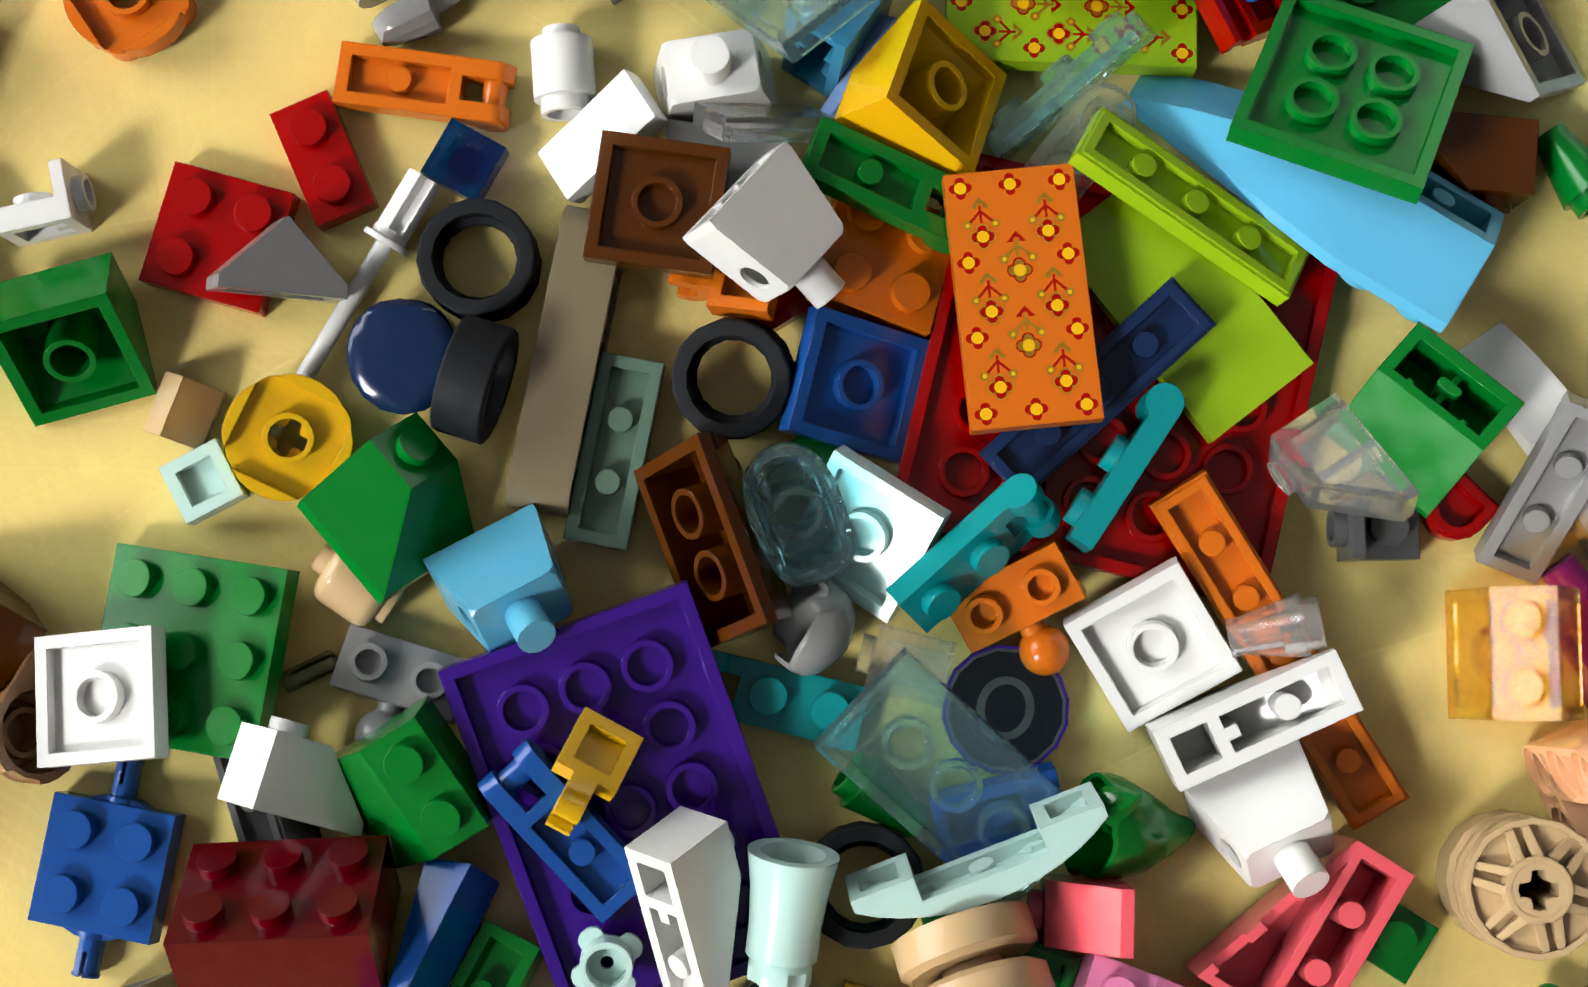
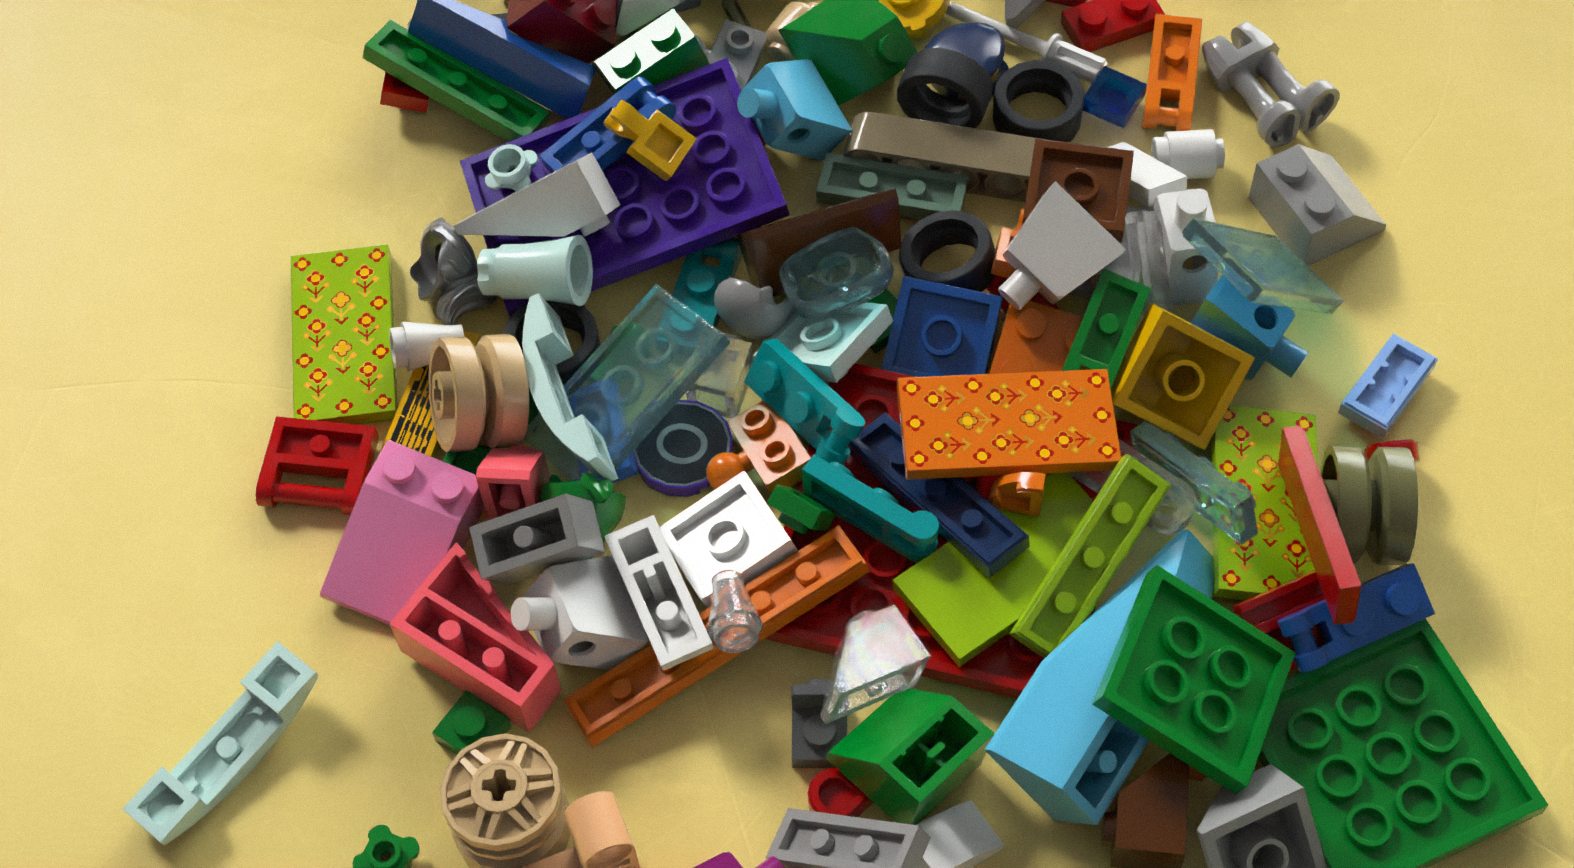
camera: 90 degrees right, 25 degrees down
(1112, 277) = (1018, 492): none -> orange tile
(1126, 551) = (800, 511): none -> green plate
(1202, 873) = (536, 539): none -> light grey brick
(1514, 653) = (701, 814): clear yellow slope -> none

